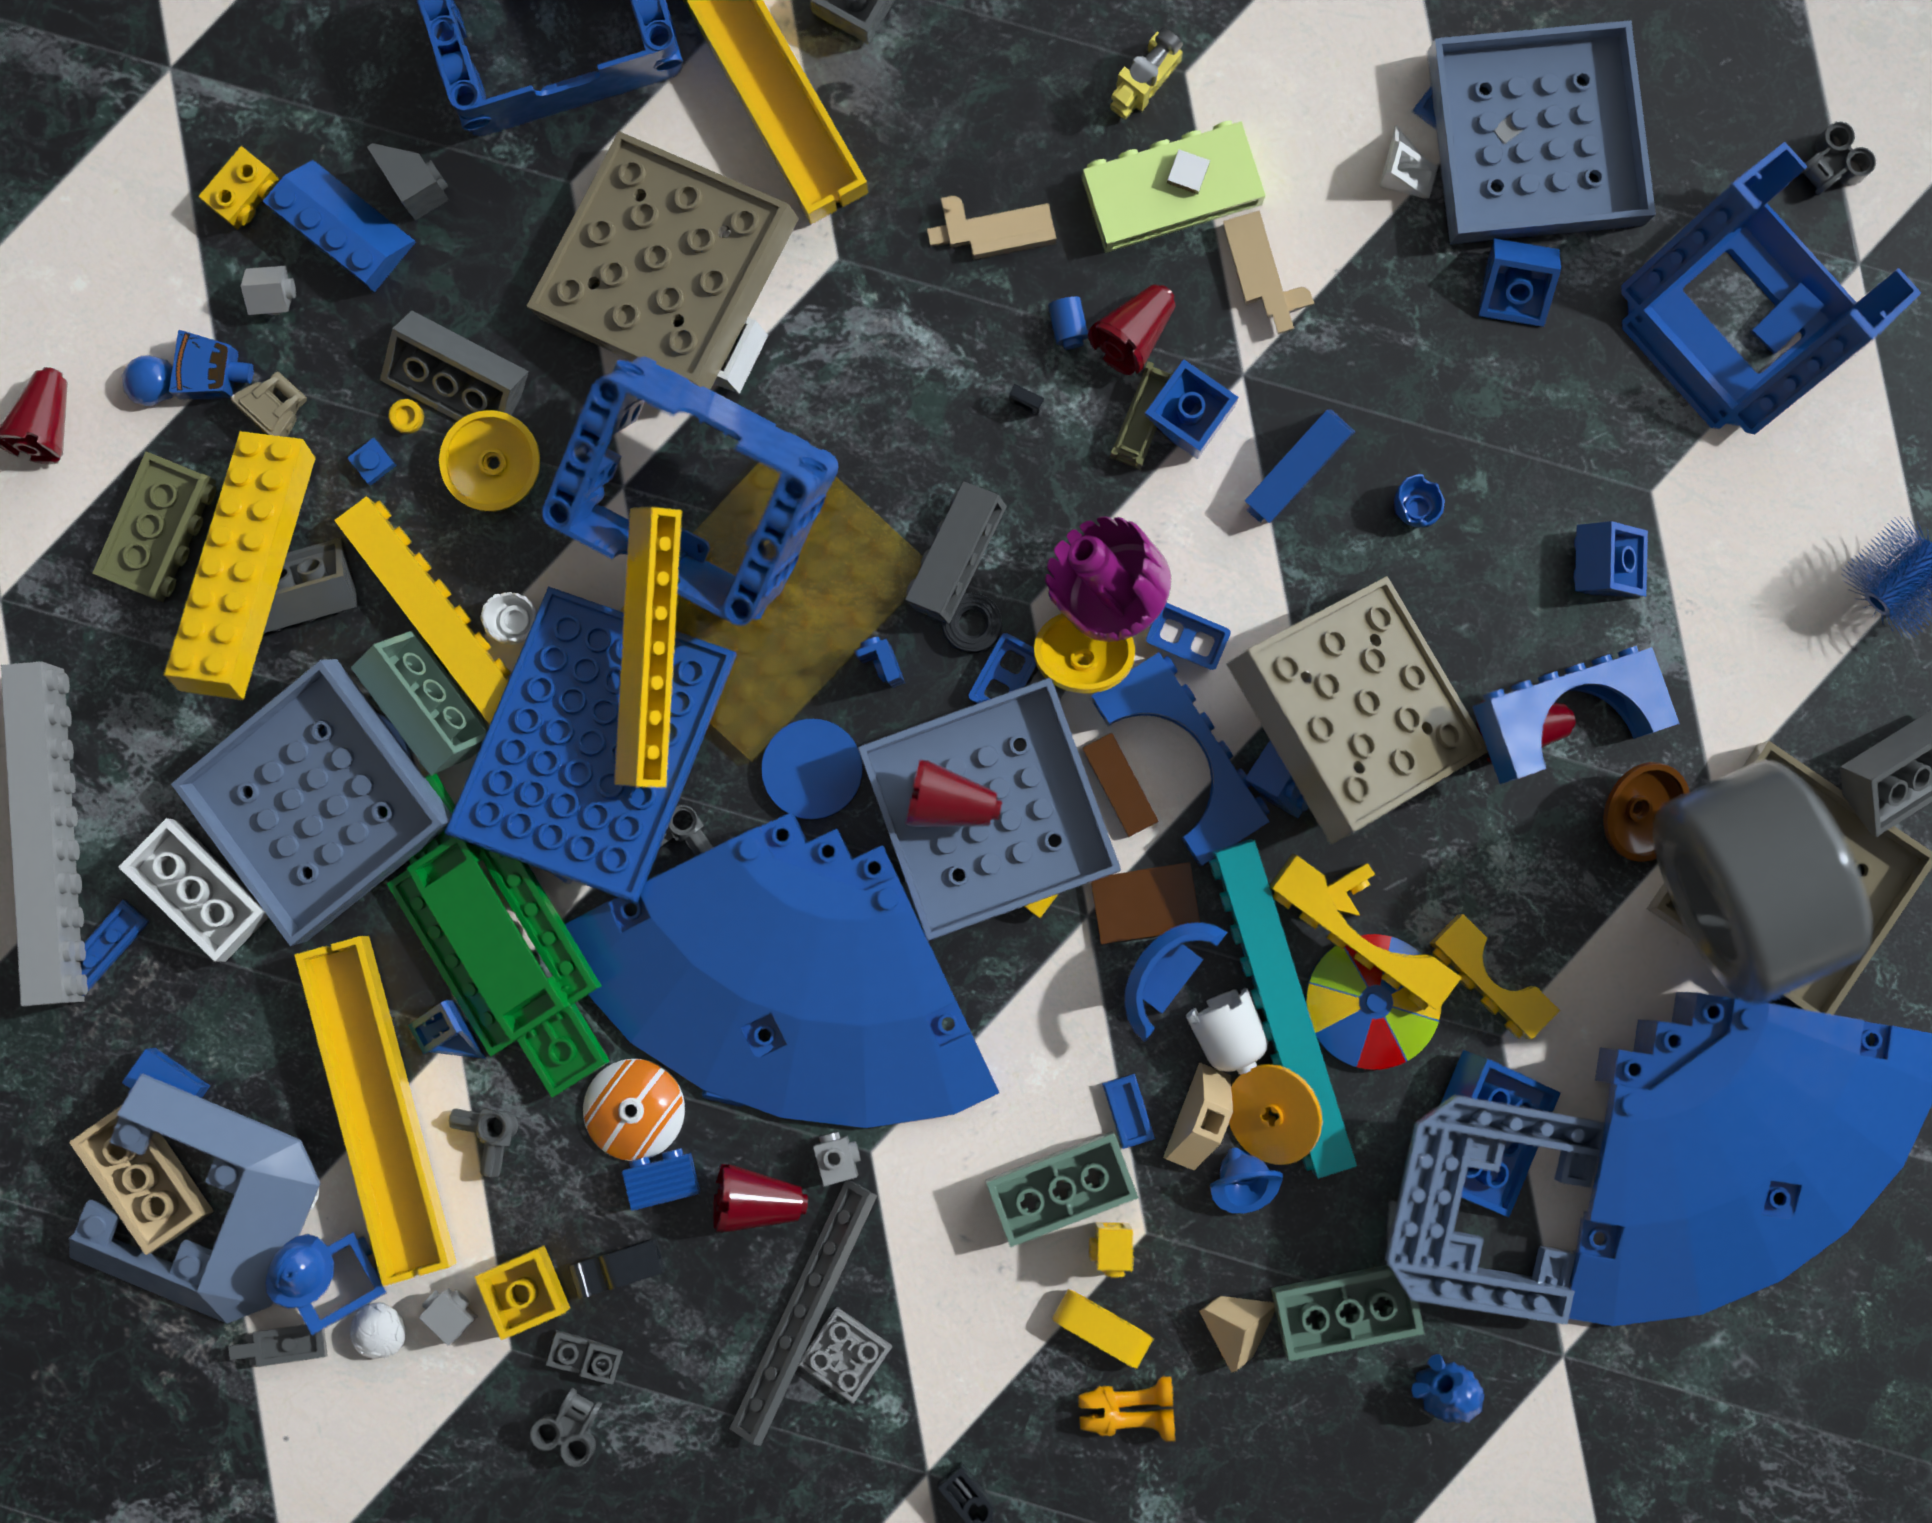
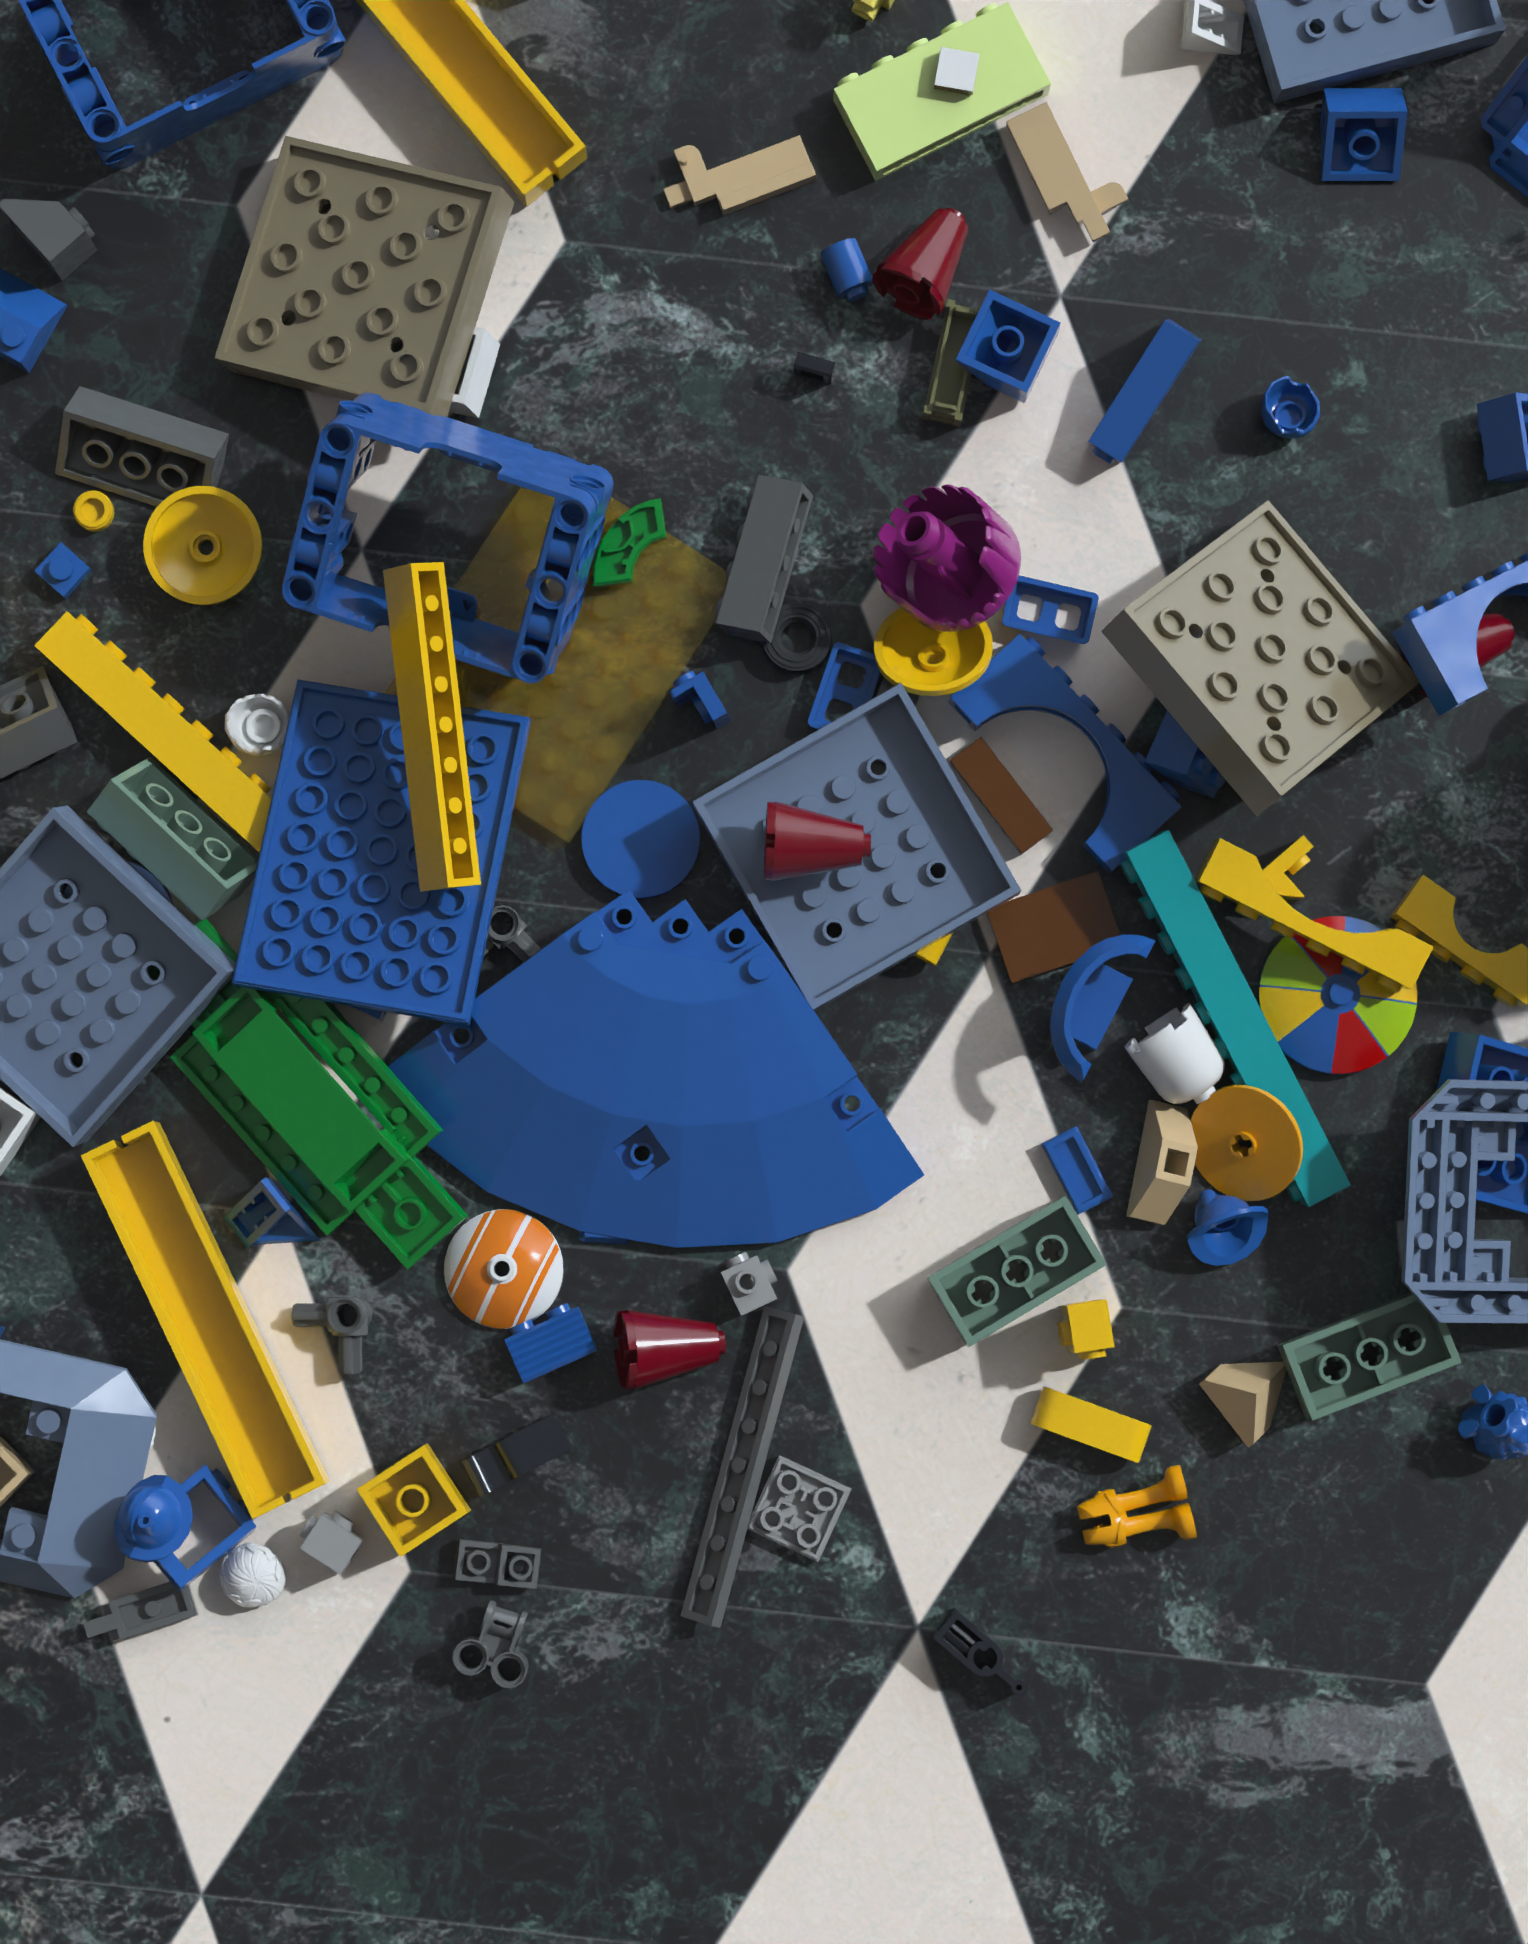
camera: 15 degrees left, 0 degrees up
(843, 518) = (626, 542): none -> green tile

